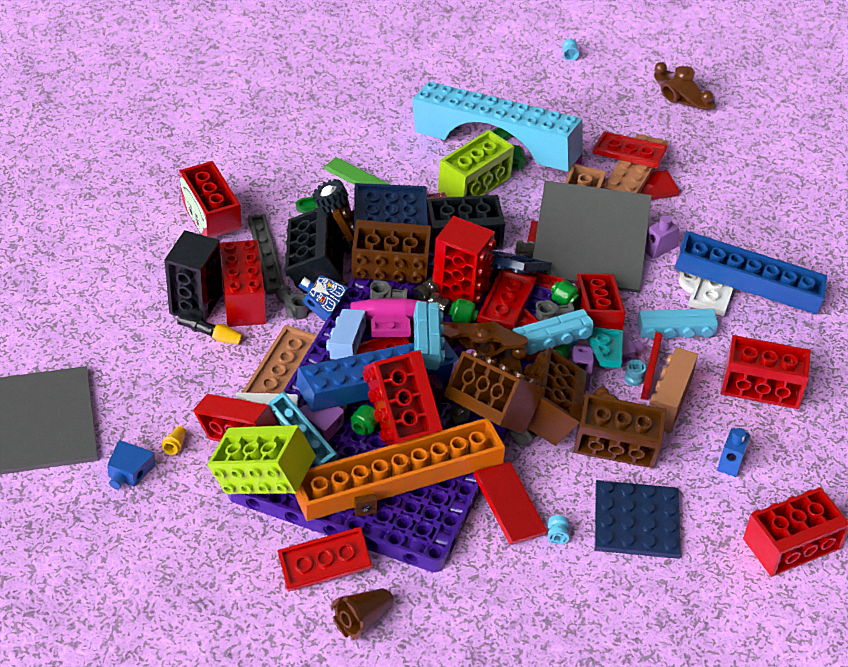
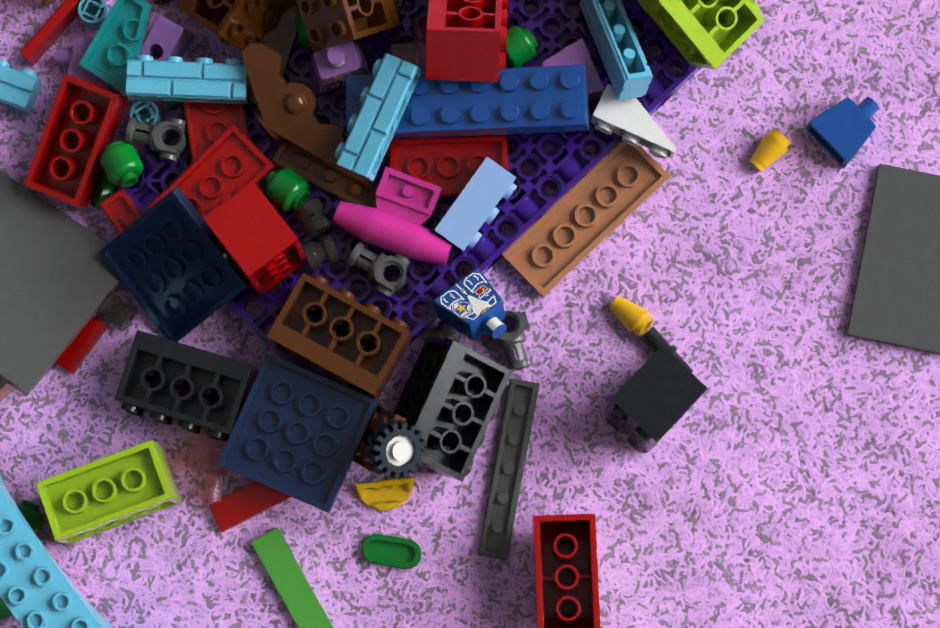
camera: 150 degrees left, 35 degrees up
(220, 413) = (689, 108): red brick -> none
(242, 283) = (579, 385): red brick -> none

